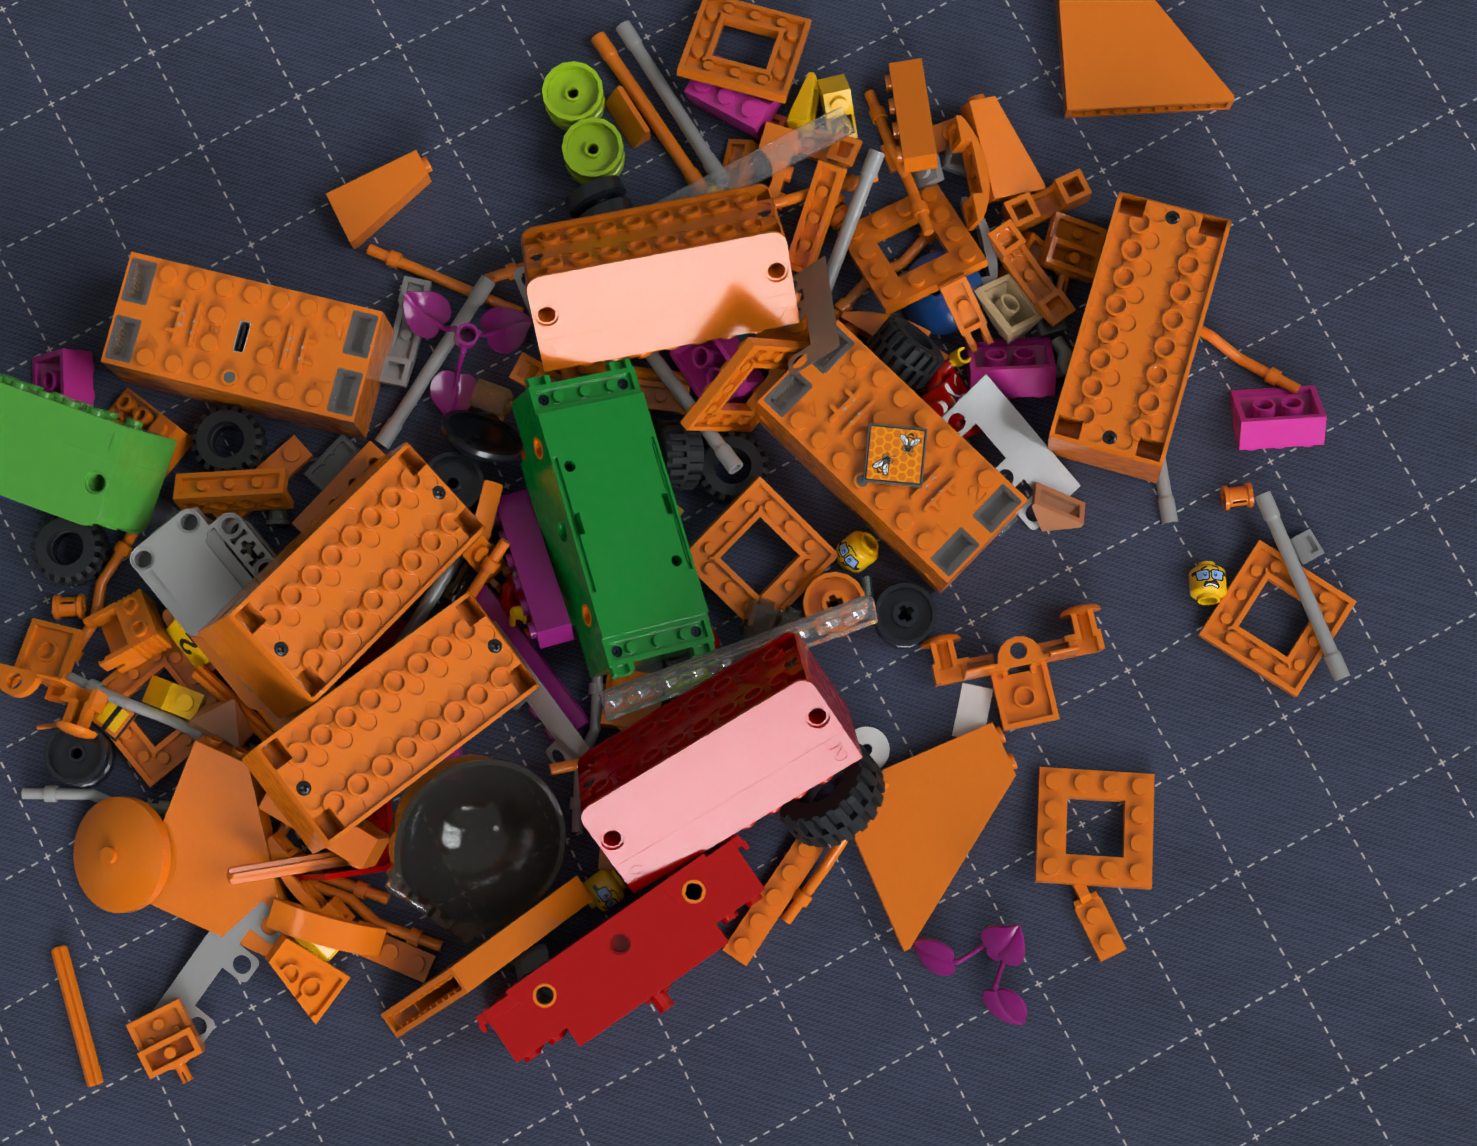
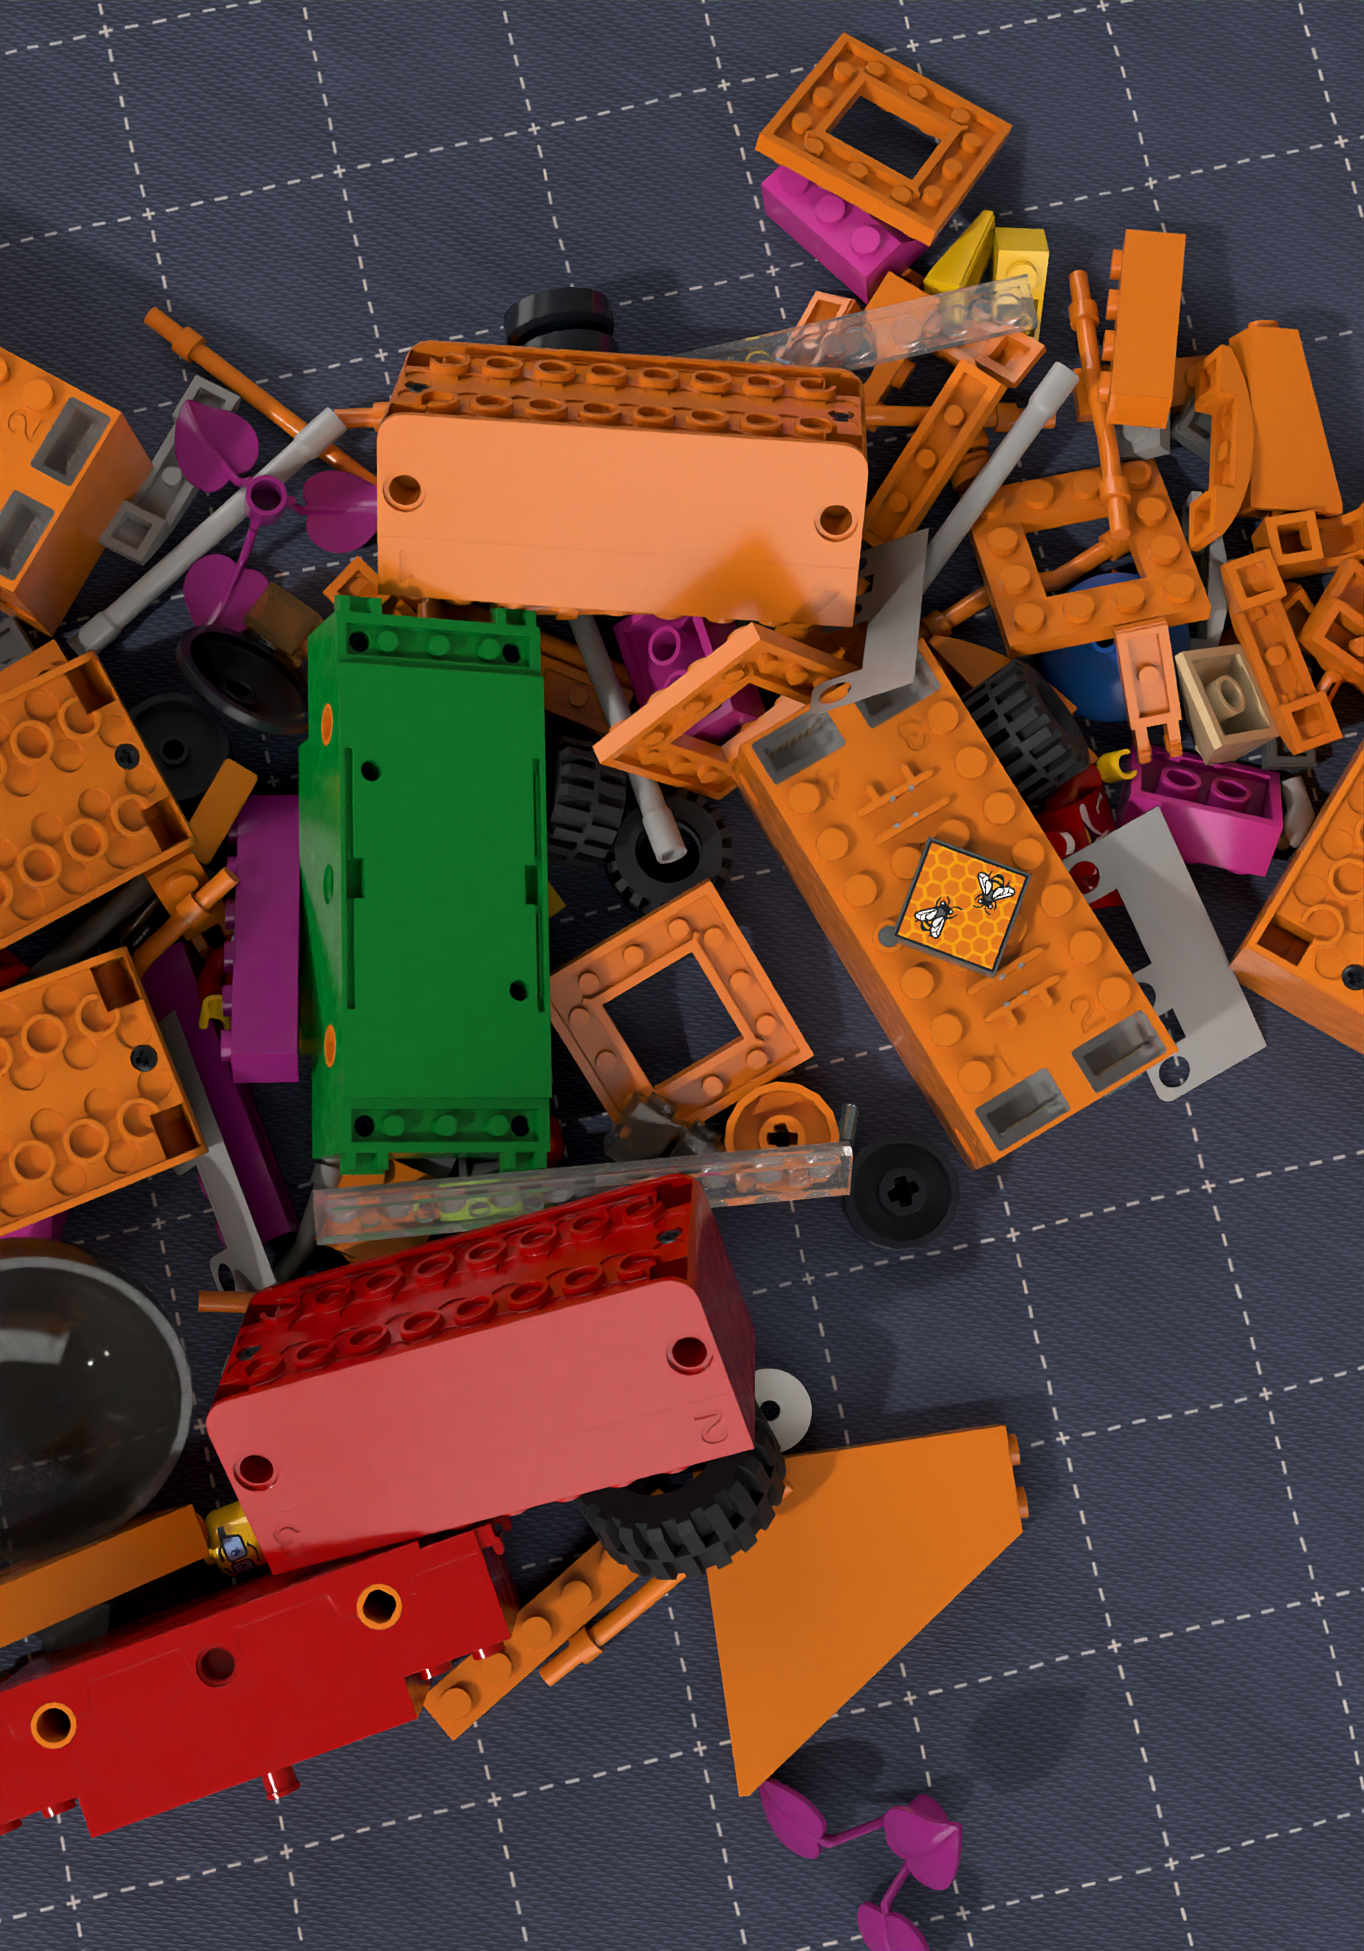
camera: 10 degrees right, 0 degrees up
(378, 195) = (191, 229): orange slope -> none
(565, 83) = (569, 146): lime wheel -> none
(590, 136) = (577, 241): lime wheel -> none
(610, 55) = (652, 97): orange piece -> none
(628, 117) = (653, 209): orange slope -> none
(634, 44) = (699, 90): light grey piece -> none
(857, 551) = (847, 1057): yellow head -> none
(972, 709) = (974, 1388): white sticker -> none
(1025, 696) = (1071, 1390): orange piece -> none
(1055, 509) = (1215, 1077): nougat slope -> none
(1097, 923) = (1096, 1833): orange hinge -> none
(1136, 794) = (1228, 1622): orange plate -> none

